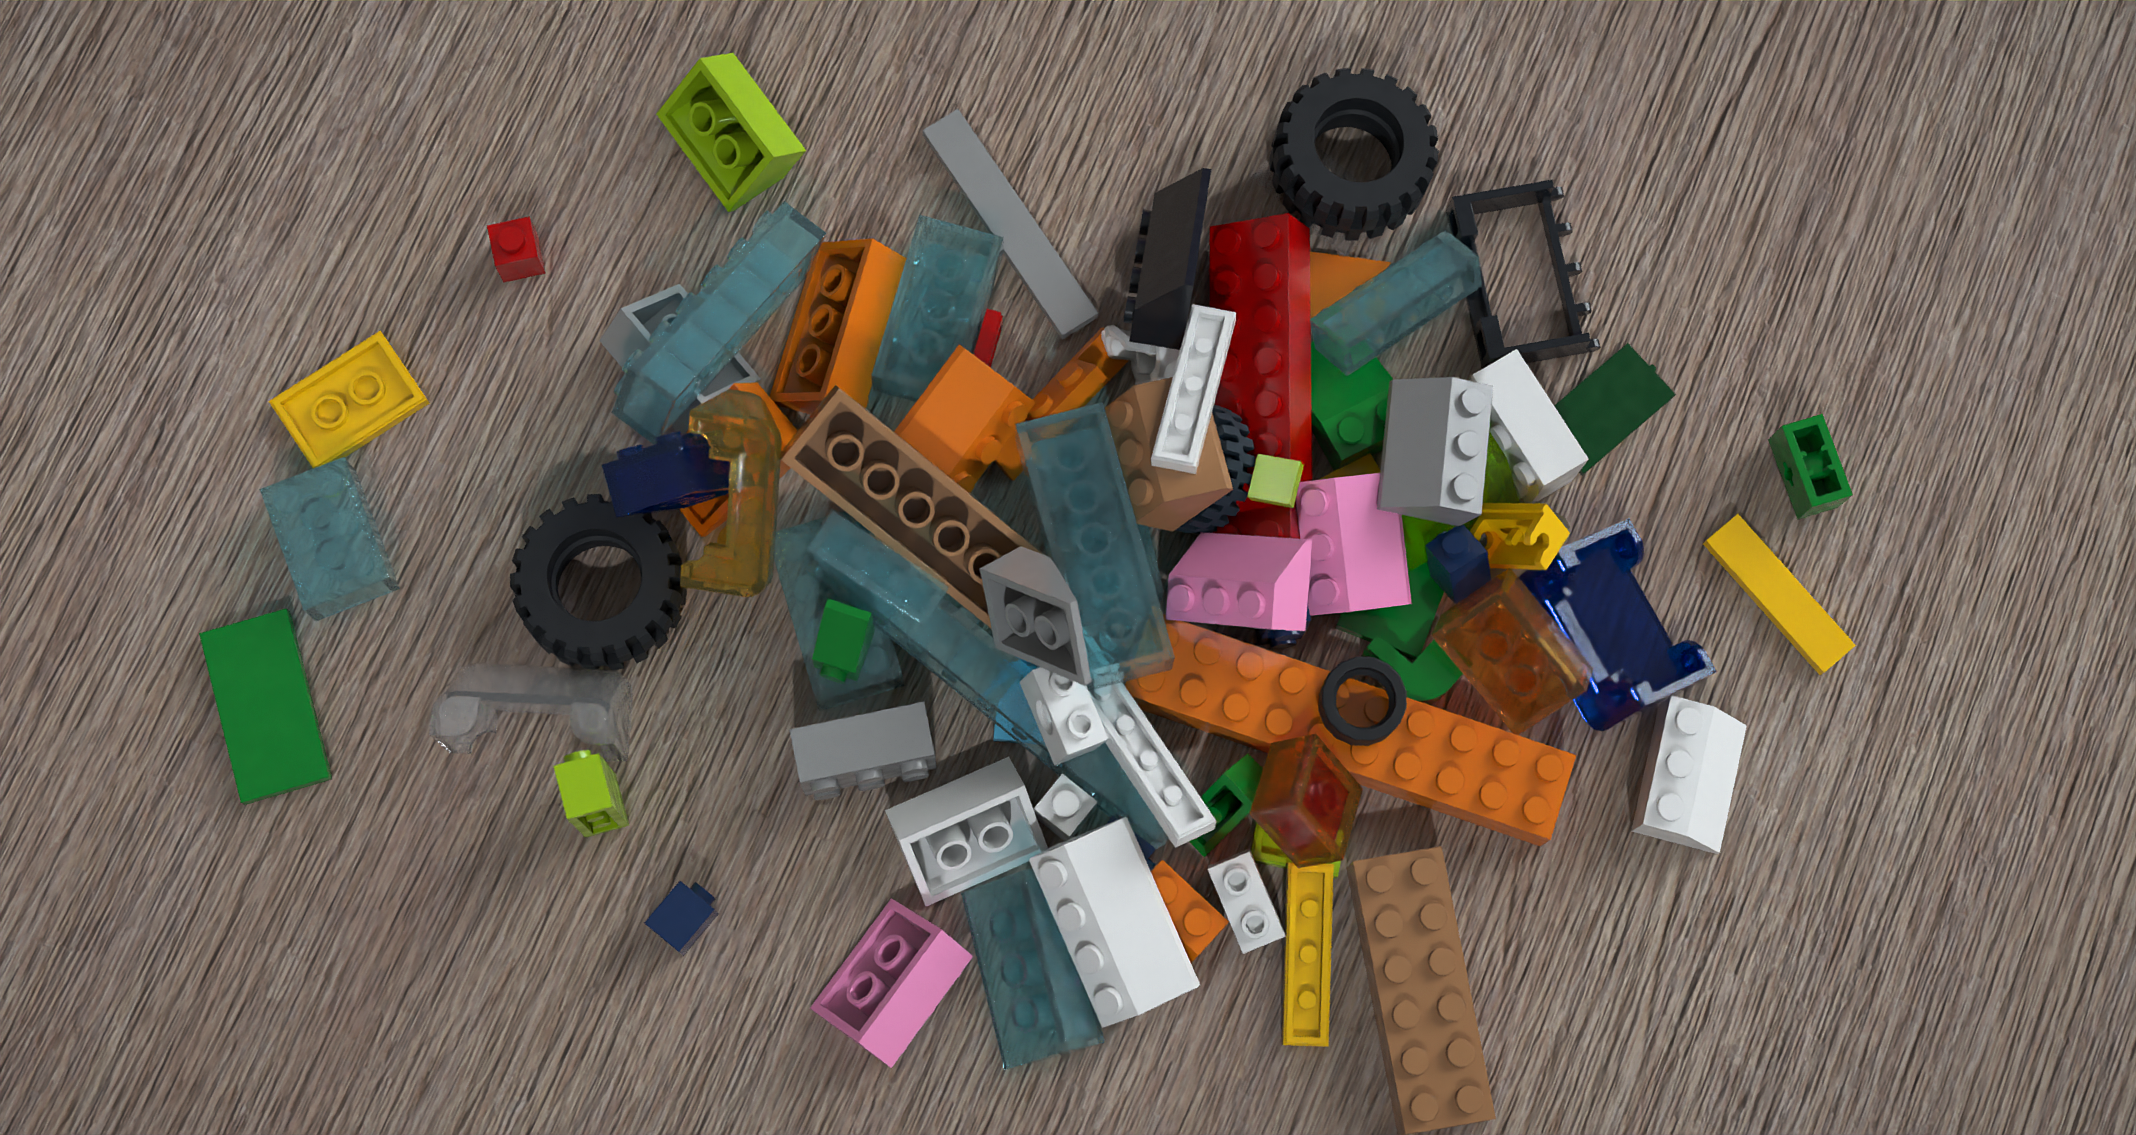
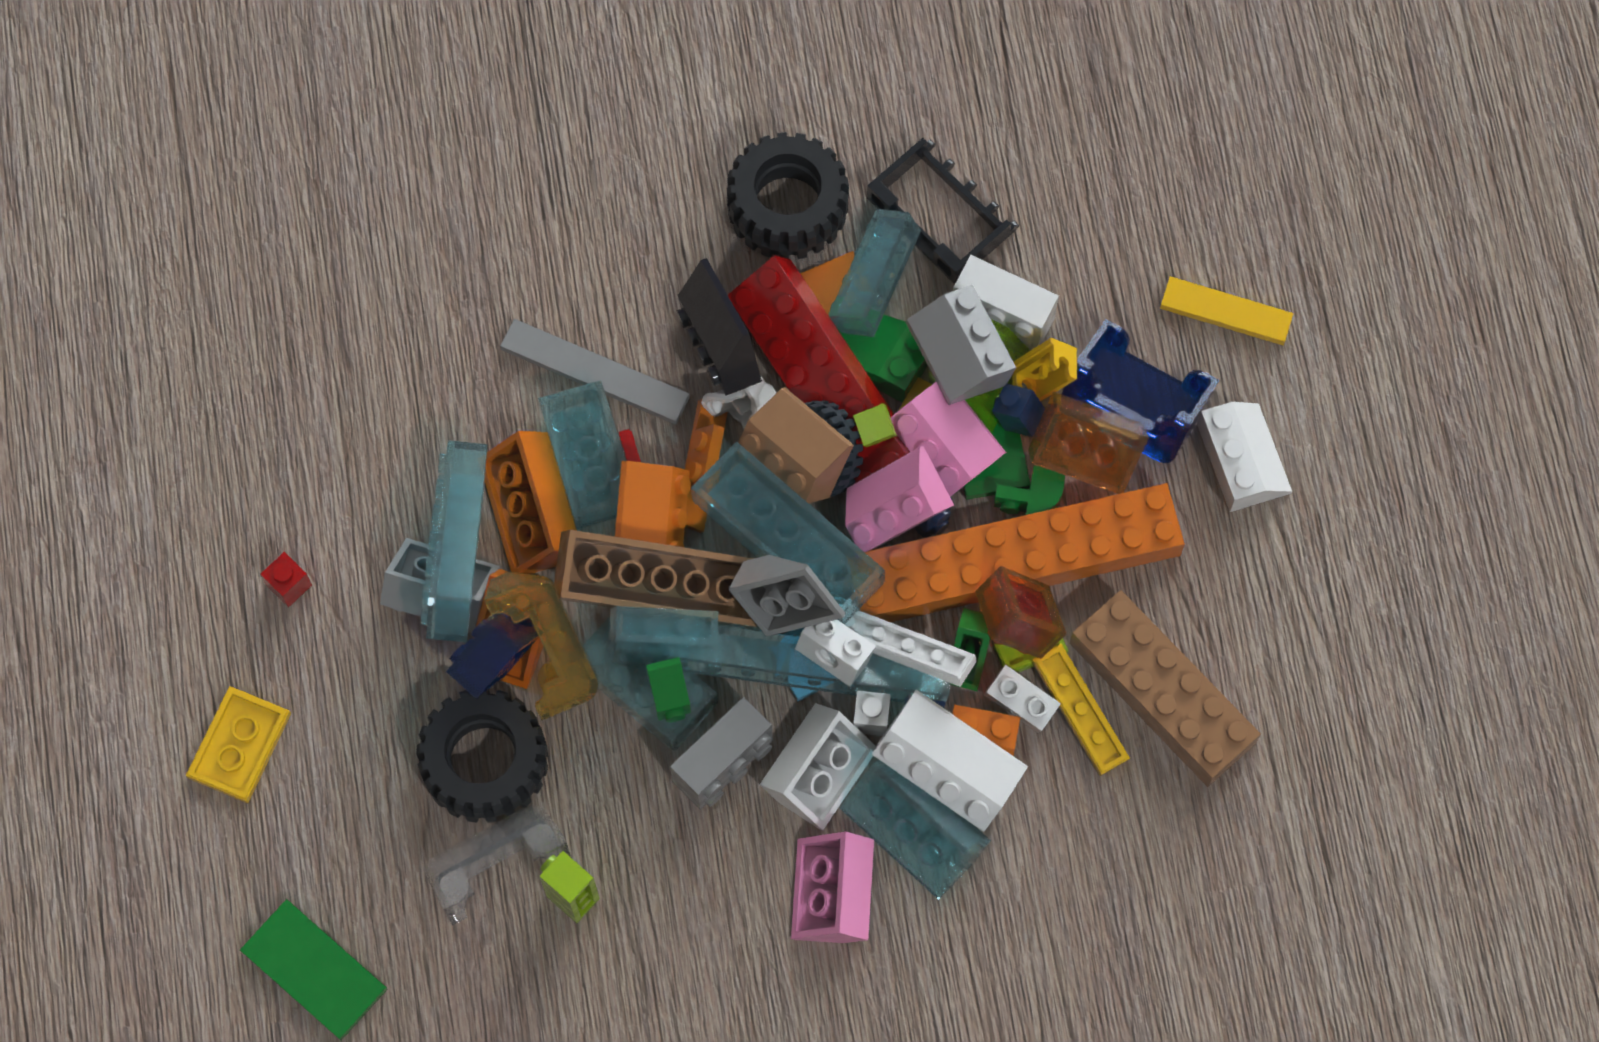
camera: 25 degrees left, 5 degrees down
(329, 539) = (287, 836): clear light blue brick -> none
(683, 916) = (674, 931): dark blue brick -> none
(730, 130) = (375, 420): lime slope -> none
(1193, 389) = (788, 399): white tile -> none
(1363, 667) = (1022, 505): black tyre -> none
(1613, 403) = (1049, 253): dark green piece -> none
(1810, 466) = (1195, 220): green brick -> none

